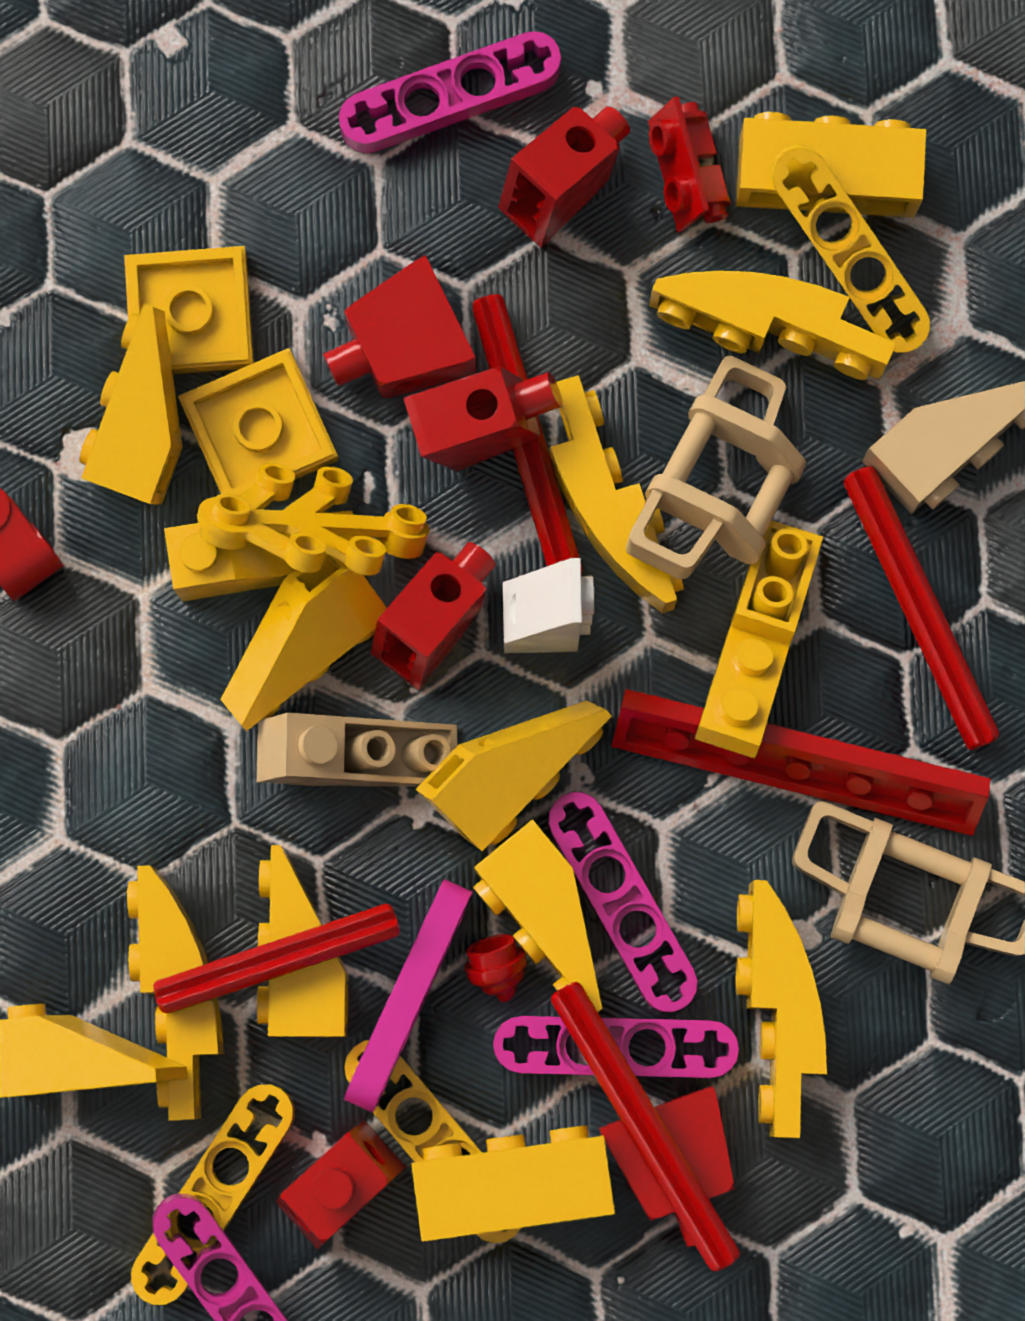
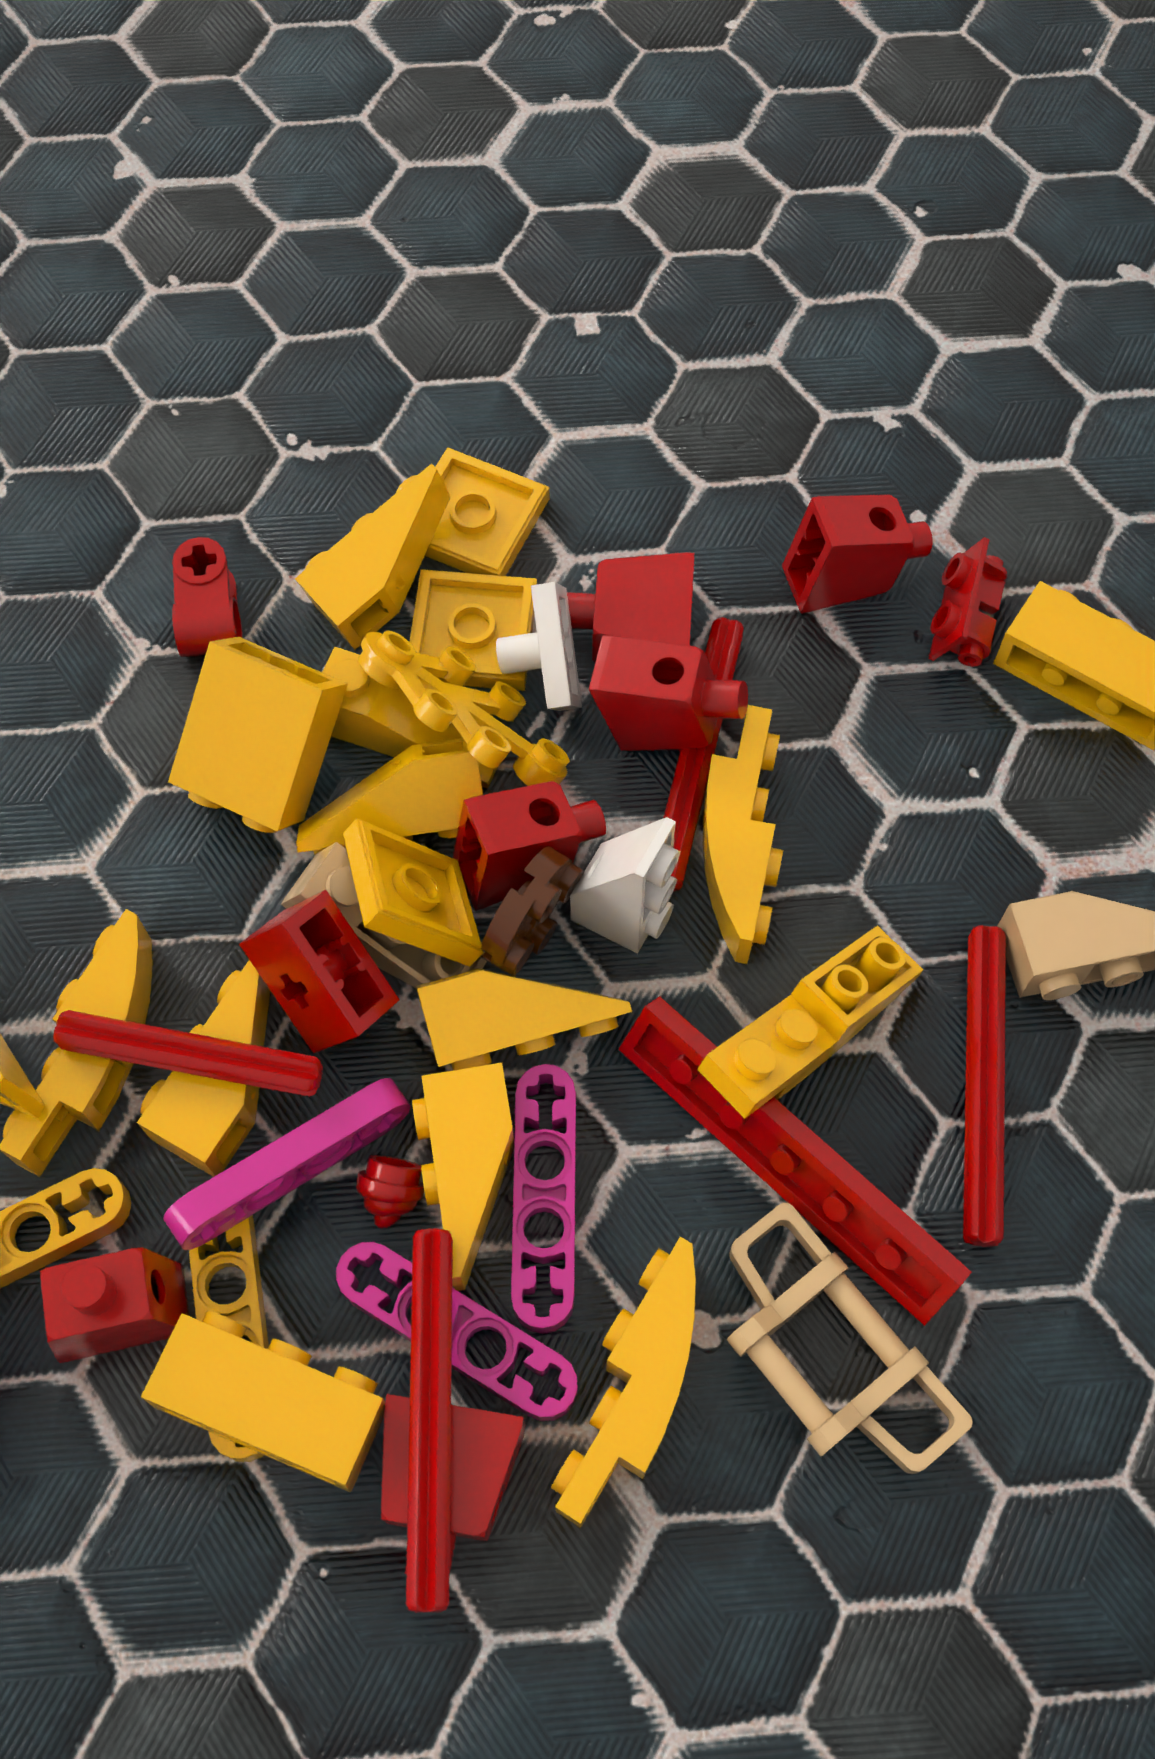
camera: 30 degrees right, 15 degrees down
(147, 647) = (256, 734): none -> yellow brick
(338, 829) = (320, 972): none -> red brick
(347, 422) = (546, 649): none -> white tile
(372, 717) = (412, 893): none -> yellow tile
(445, 82) = (793, 449): dark pink beam -> none
(482, 677) = (523, 917): none -> reddish brown plate
(719, 520) = (827, 882): tan bar -> none
(749, 305) = (965, 740): yellow slope -> none
(856, 244) = (1091, 729): yellow beam -> none

